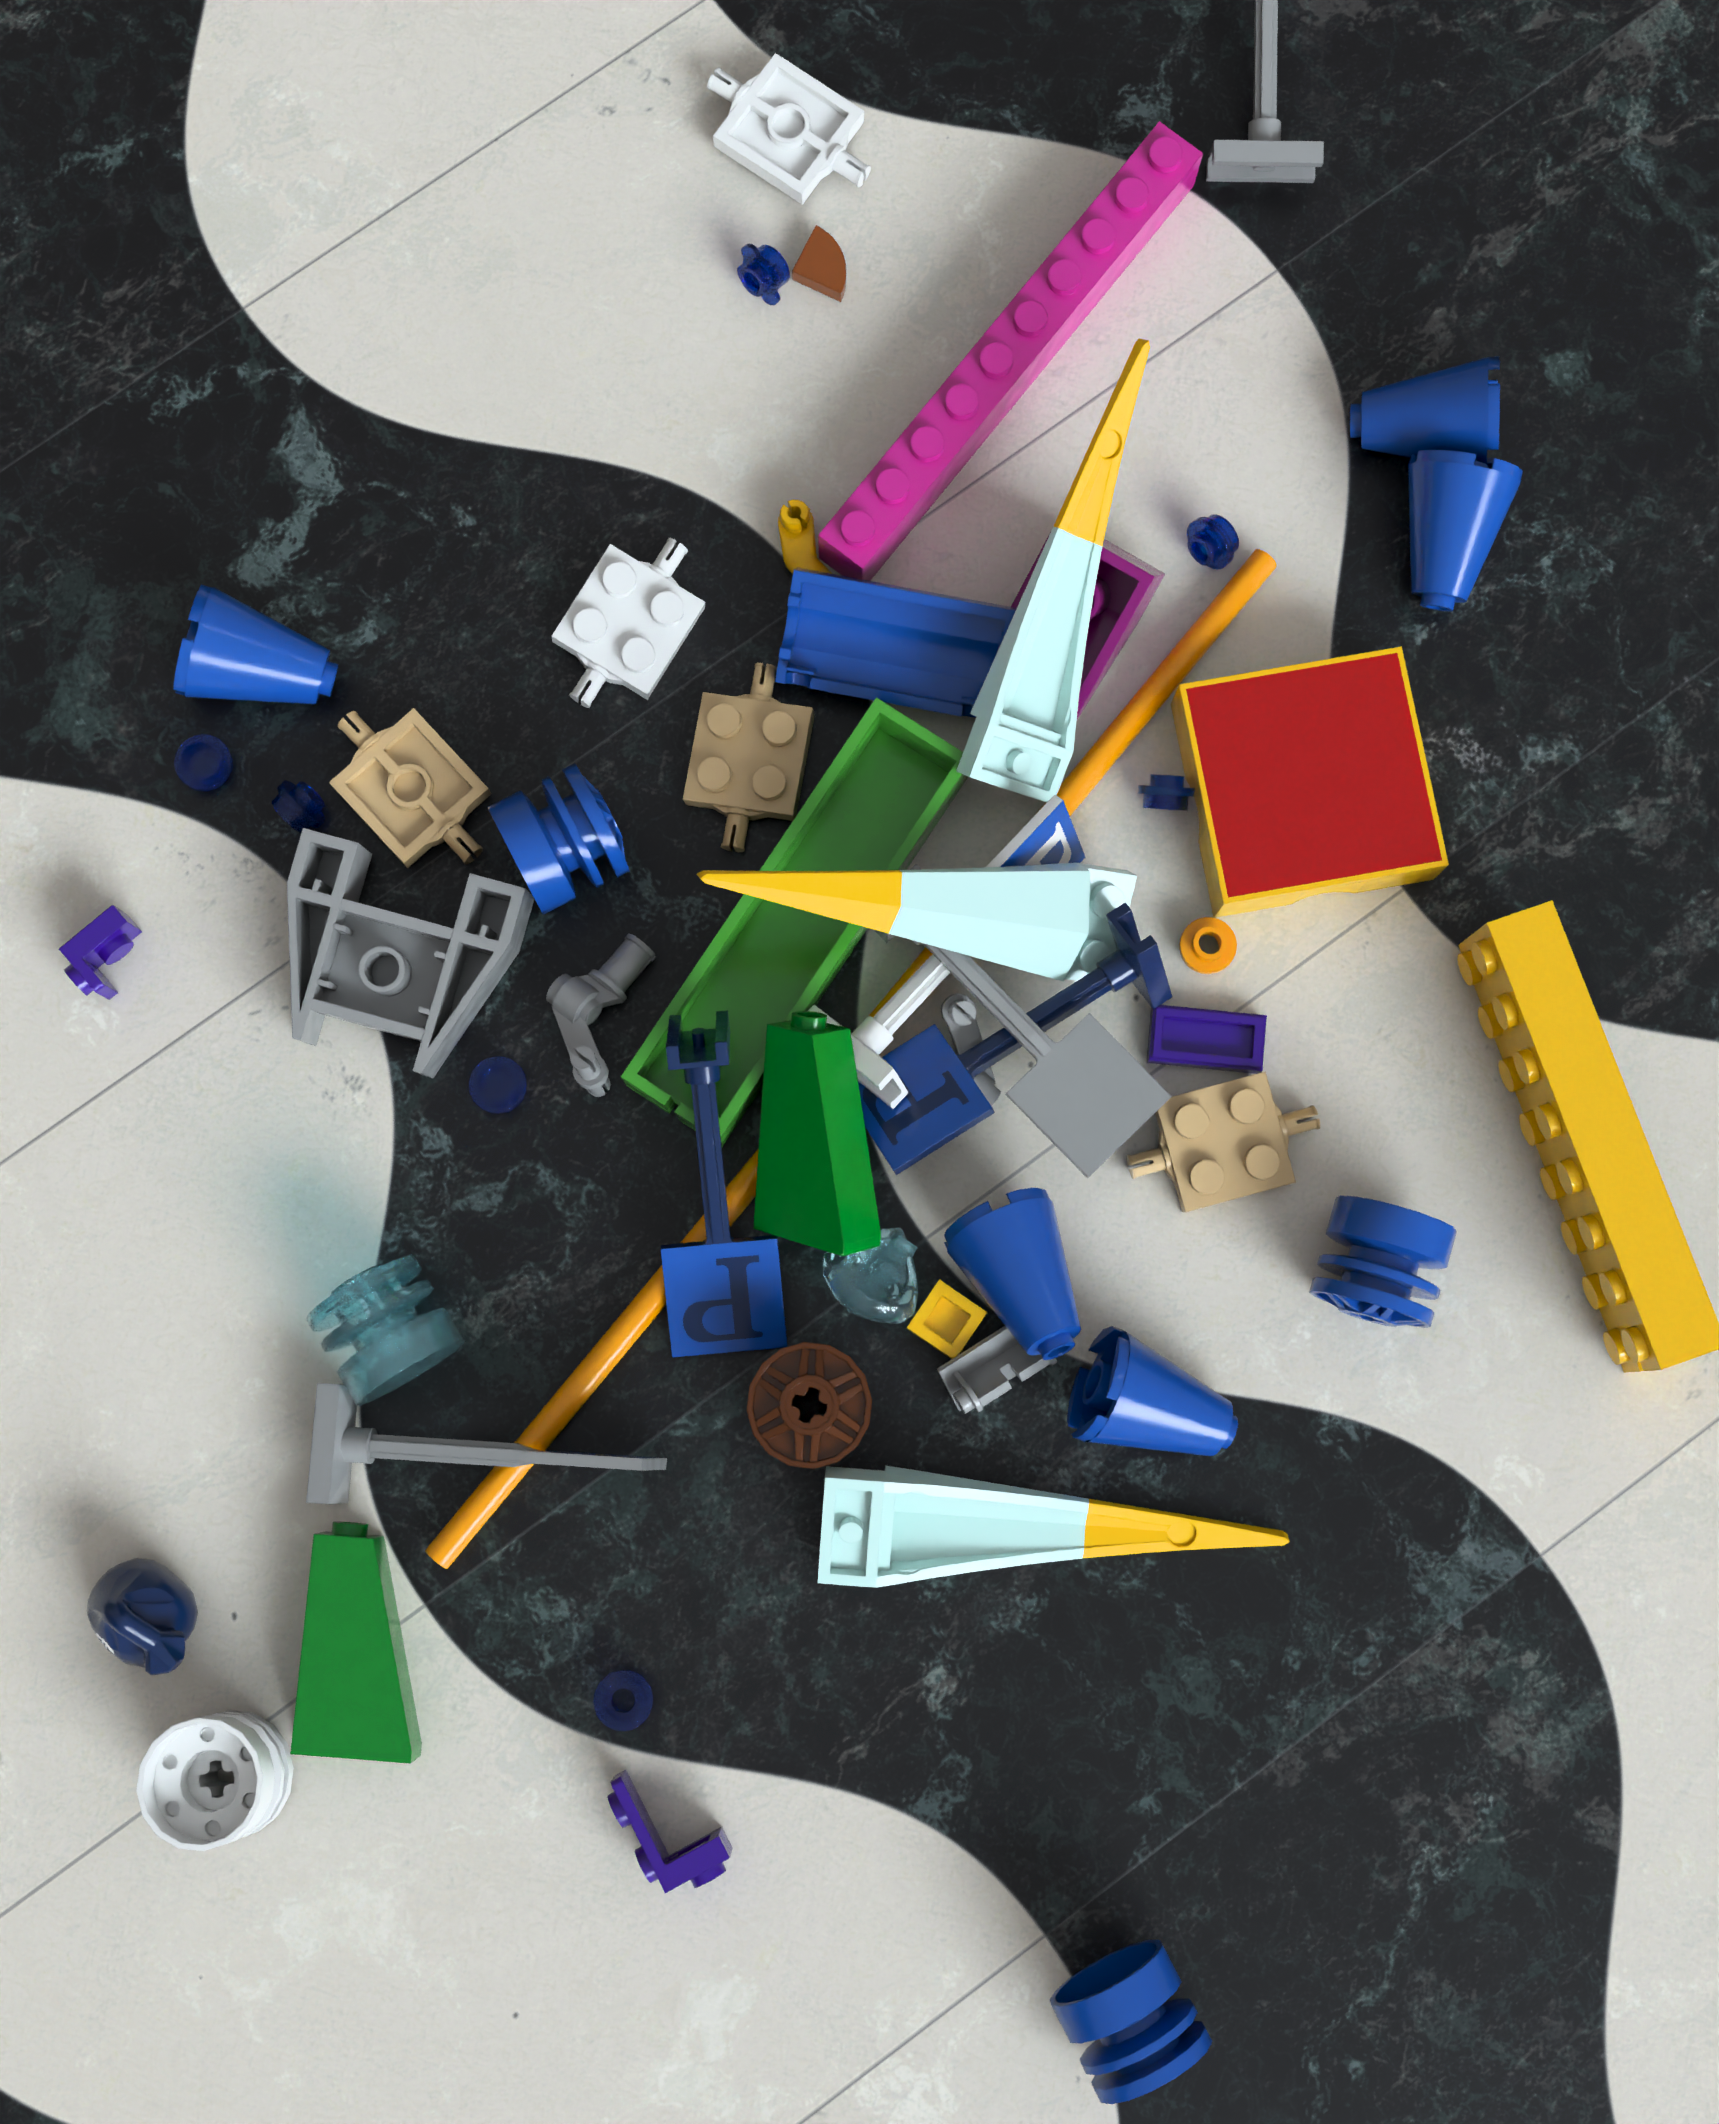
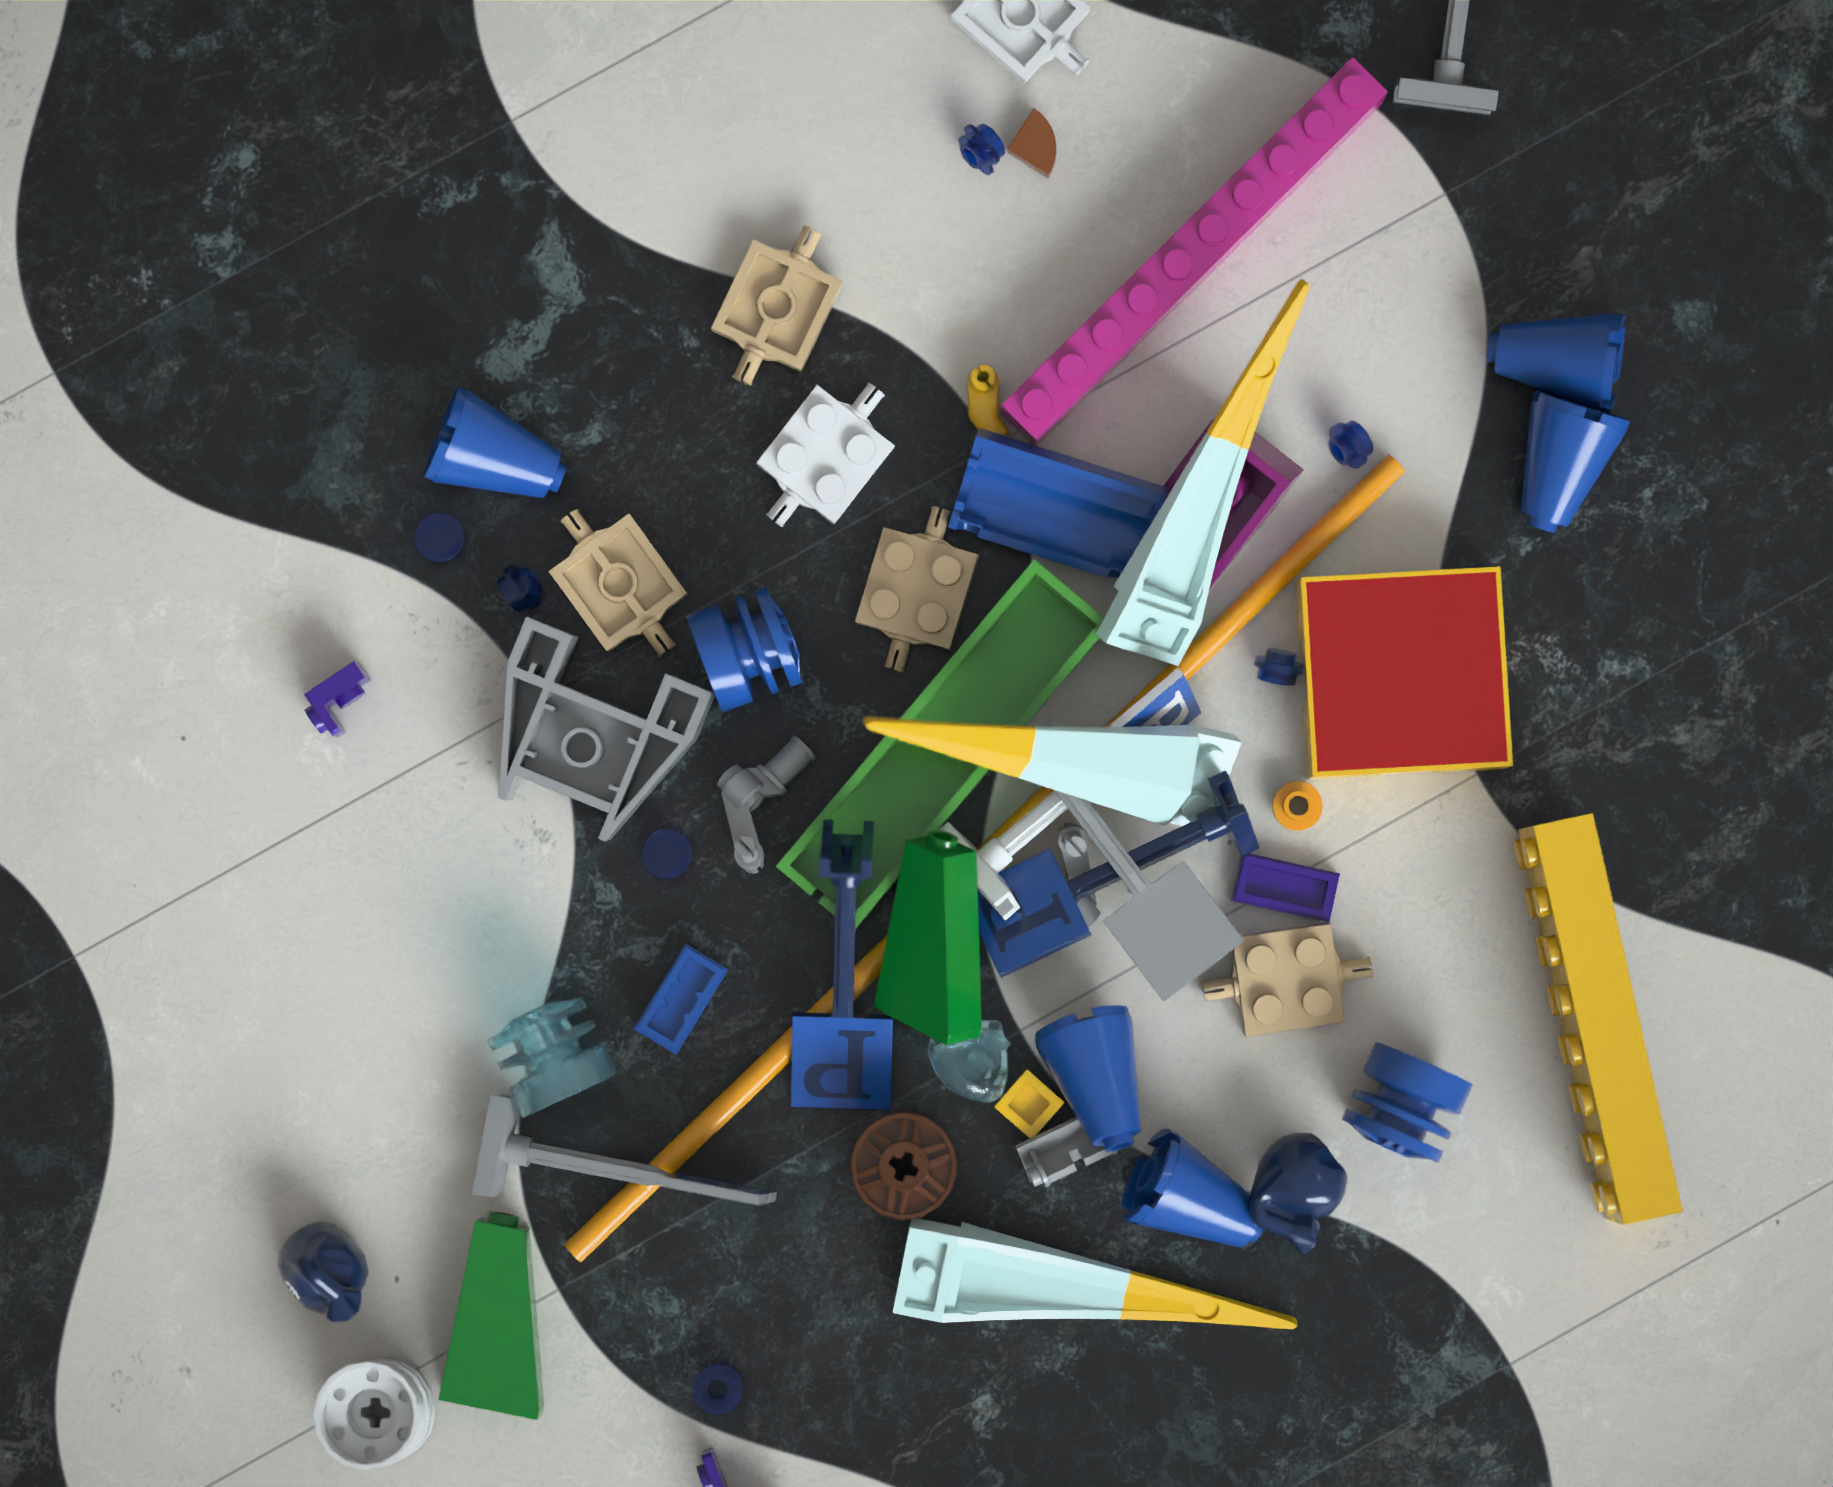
camera: 10 degrees right, 5 degrees up
(531, 1247) = (681, 999): none -> blue plate
(556, 466) = (777, 305): none -> tan plate
(1269, 1376) = (1296, 1187): none -> dark blue piece

